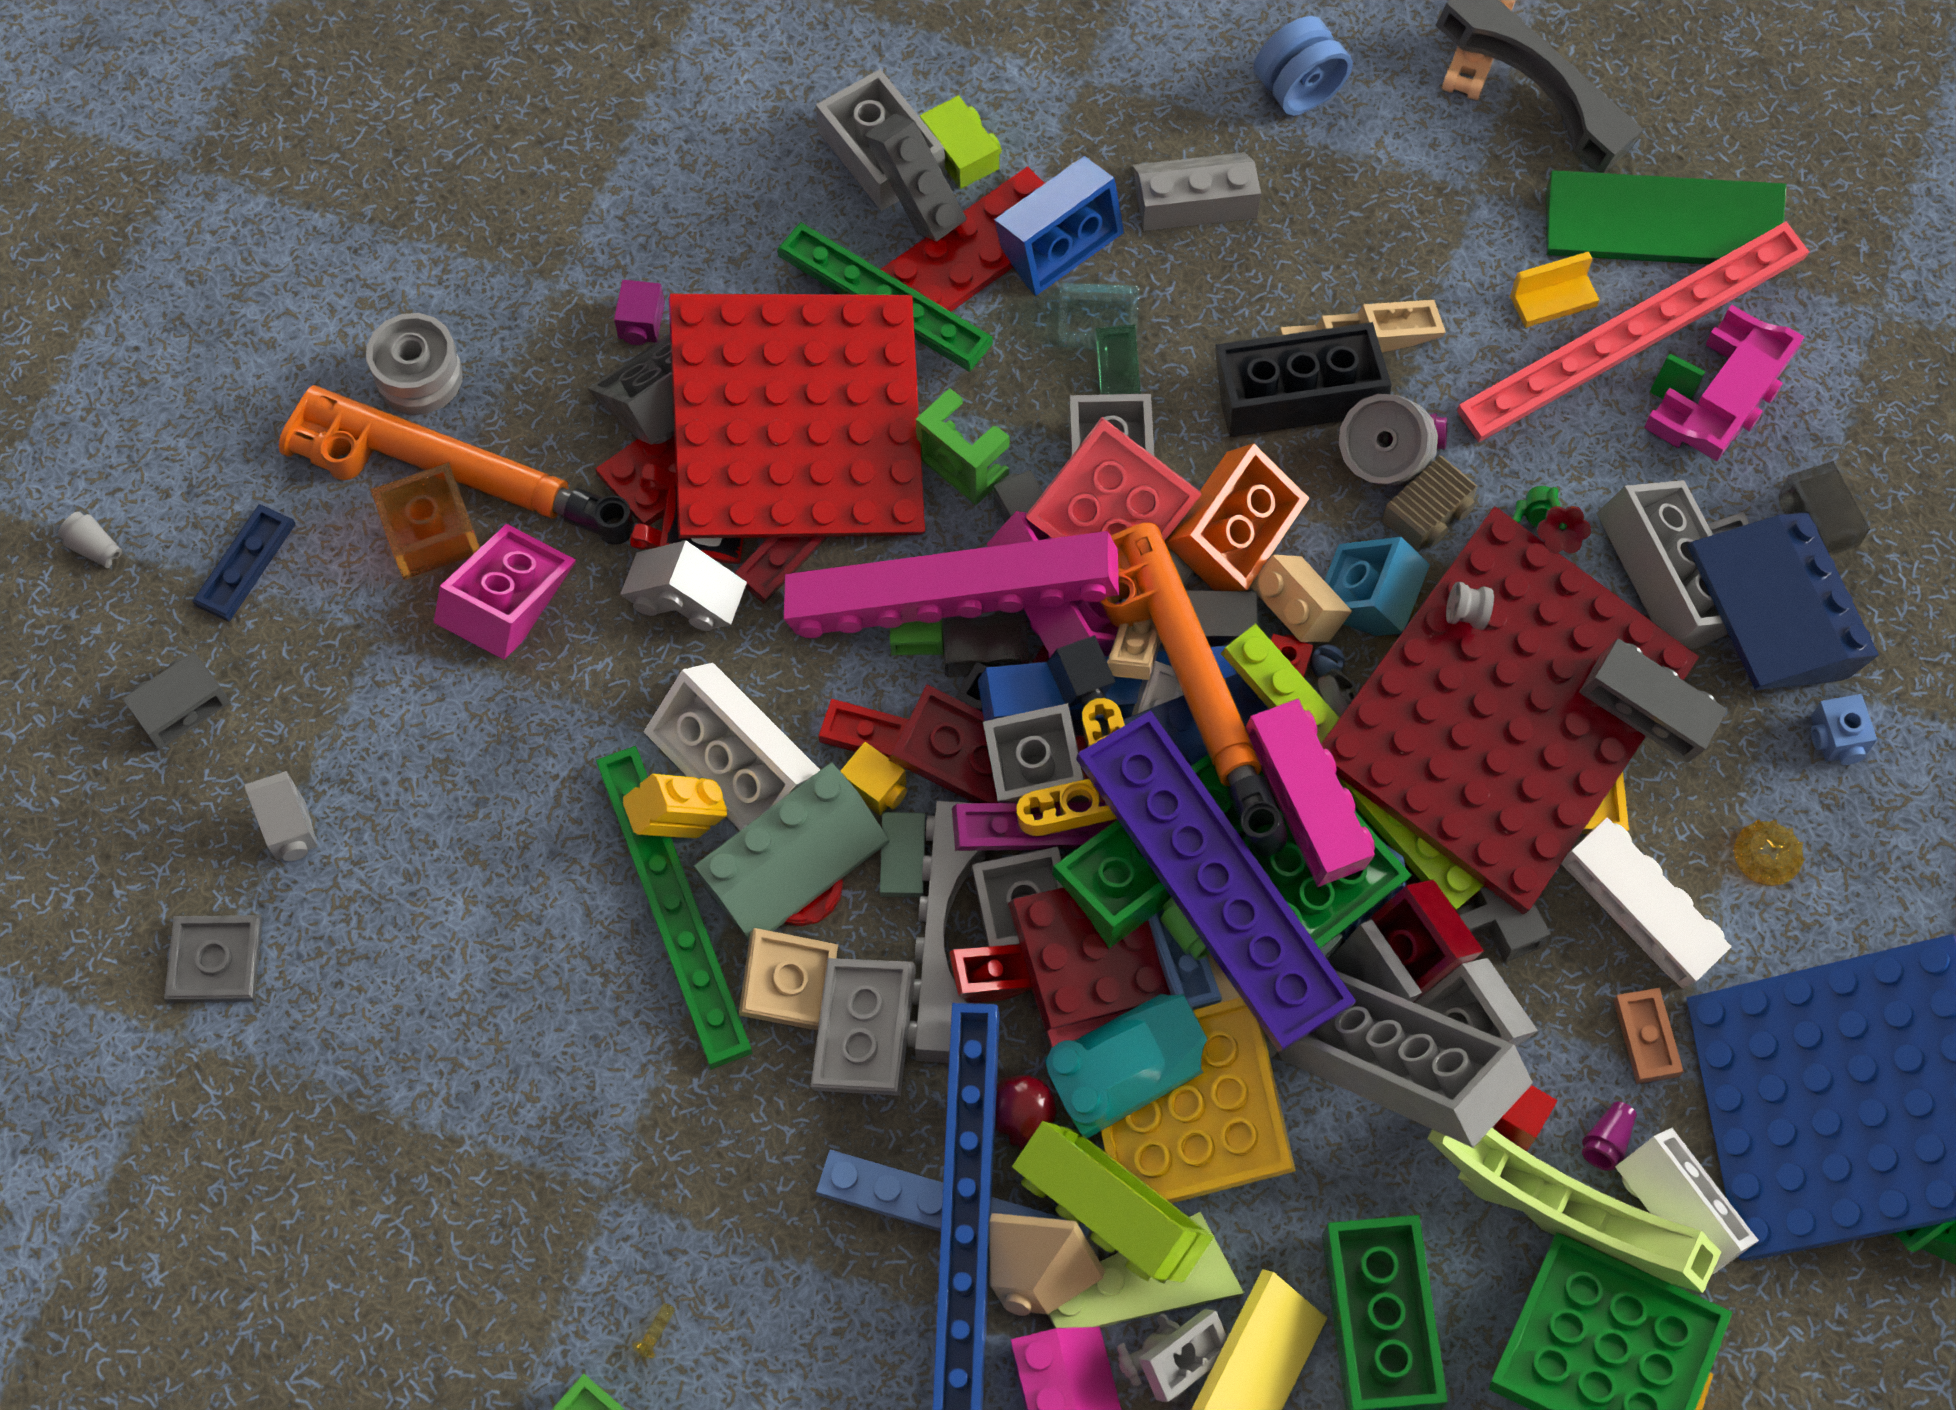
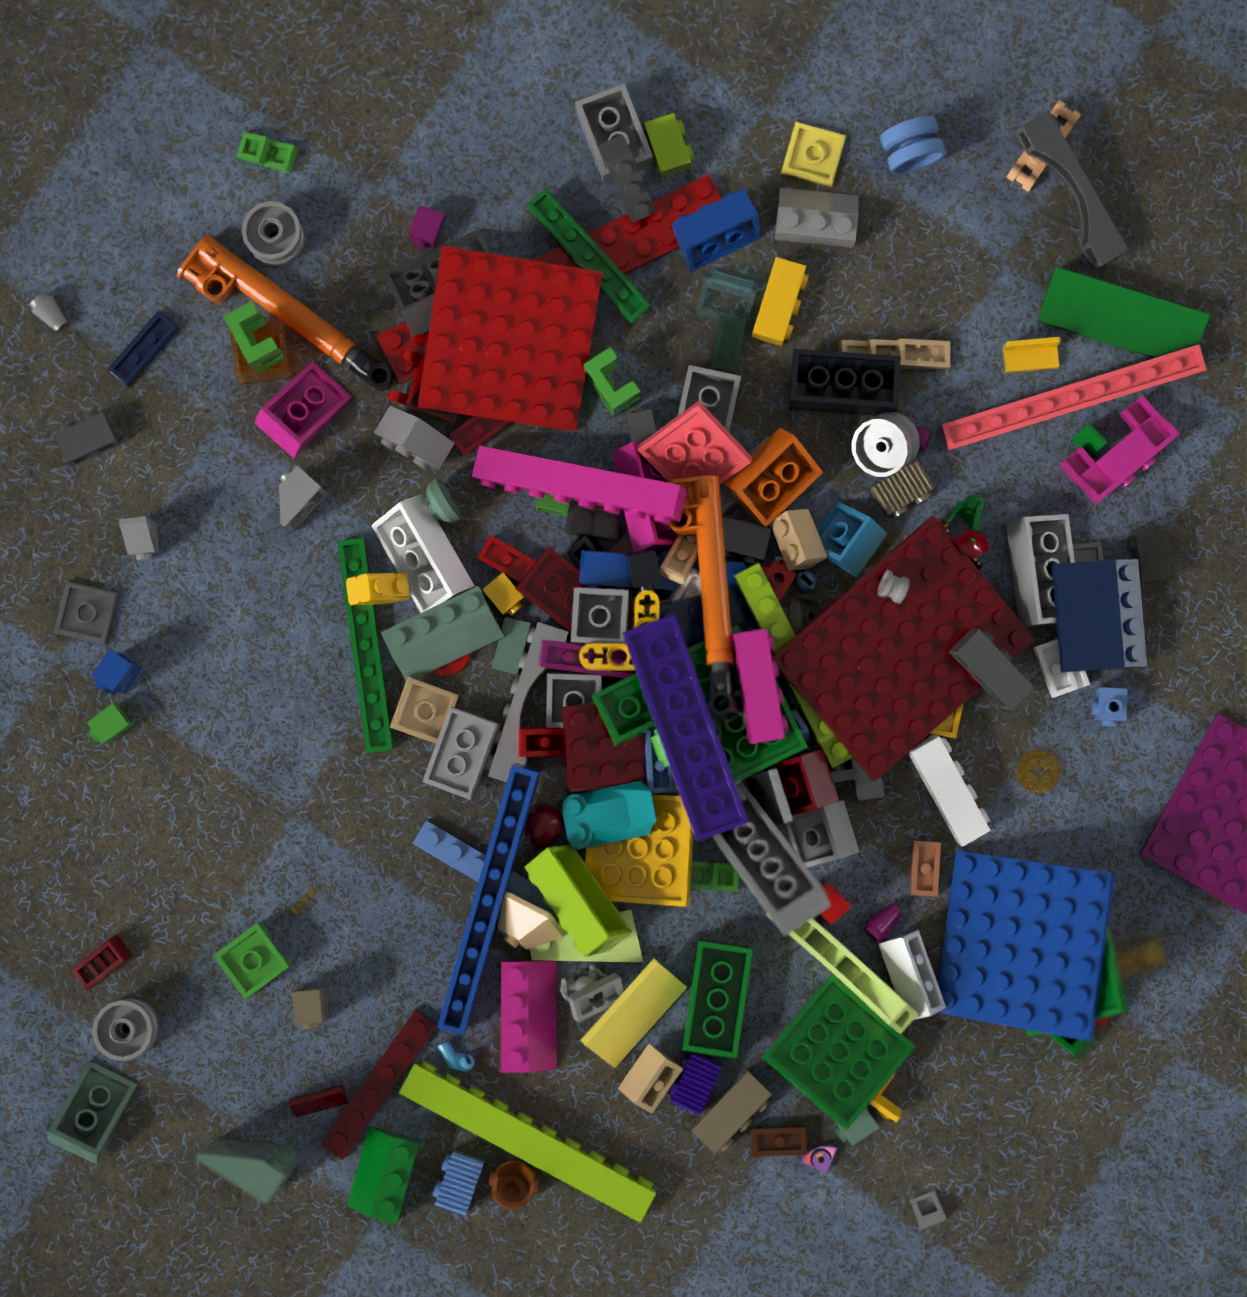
camera: 20 degrees right, 20 degrees up
(276, 1027) = (115, 673): none -> blue brick
(278, 1117) = (109, 724): none -> bright green brick
(378, 270) = (266, 152): none -> bright green slope
(409, 485) = (242, 324): none -> bright green panel
(526, 702) = (298, 497): none -> light grey slope
(745, 666) = (440, 502): none -> sand green piece
(1166, 115) = (813, 154): none -> light yellow tile
(1176, 300) = (780, 302): none -> yellow brick
(1323, 1128) = (714, 876): none -> bright green slope
(1749, 709) = (1057, 681): none -> white plate

